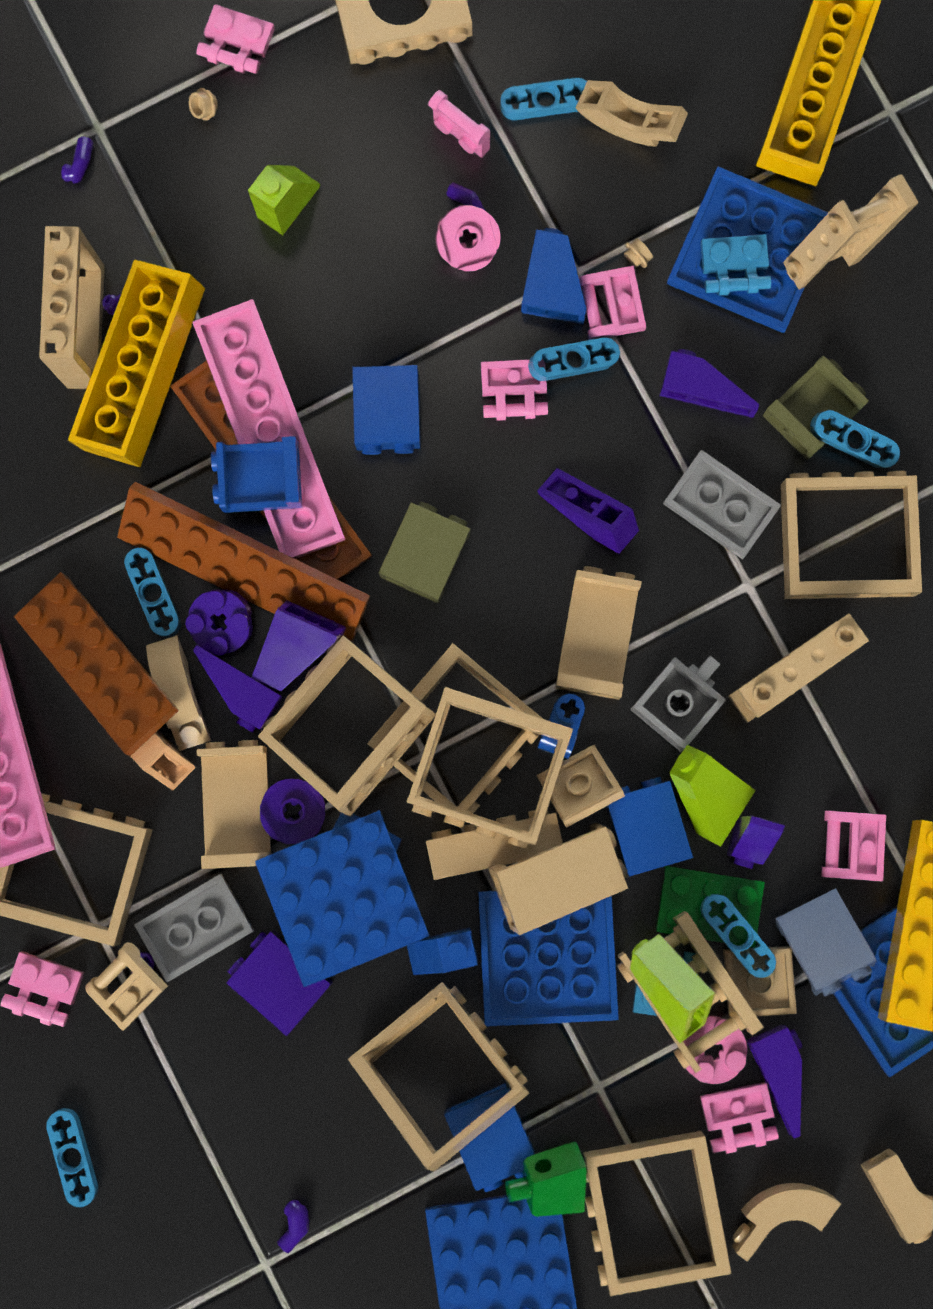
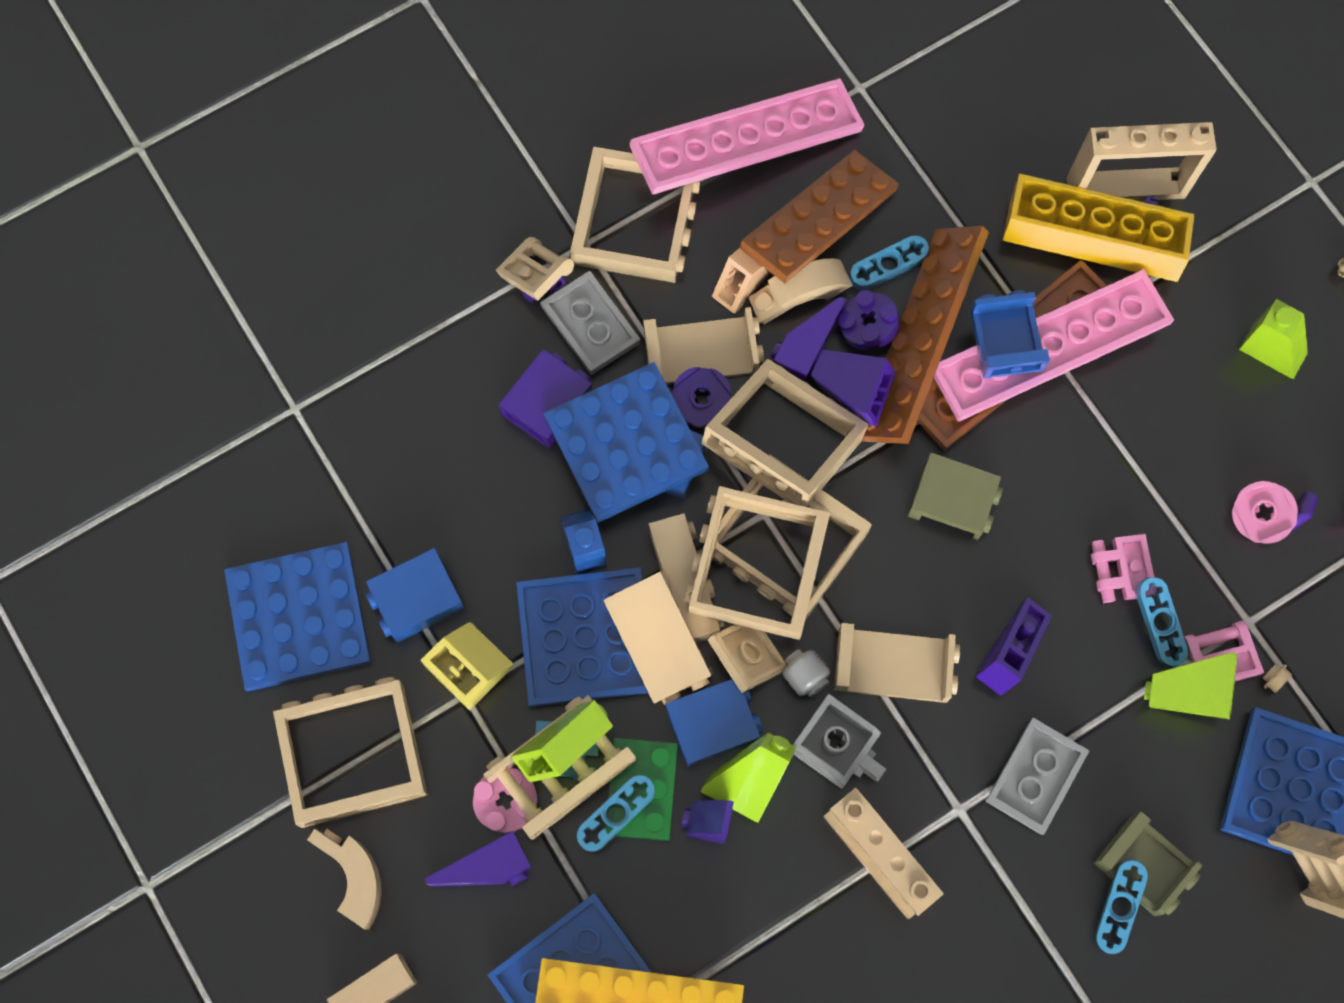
camera: 80 degrees right, 10 degrees down
(46, 979) = (537, 205): bright pink plate -> none
(80, 161) = (1269, 165): dark purple arm -> none
(86, 1179) = (389, 228): dark azure beam -> none
(298, 1225) = (330, 432): dark purple arm -> none
(363, 1064) = (505, 501): tan window -> none
(386, 409) = (1087, 451): blue brick -> none
(552, 280) = (1237, 595): blue slope -> none
(552, 1182) = (375, 648): green torso -> none
(571, 1083) = (467, 664): none -> light yellow slope
(573, 721) = (807, 642): blue piece -> none
(603, 726) = (806, 672): none -> light grey head
(648, 336) = (1196, 688): none -> lime slope
(699, 383) = (1156, 742): dark purple slope -> none
(735, 255) = (1291, 771): dark azure plate -> none
(738, 1107) = (451, 825): bright pink plate -> none
(769, 994) = (562, 851): tan plate -> none
(827, 943) = (613, 901): sand blue panel -> none
(857, 588) = (969, 913): tan window -> none
(865, 846) = (712, 939): bright pink plate -> none

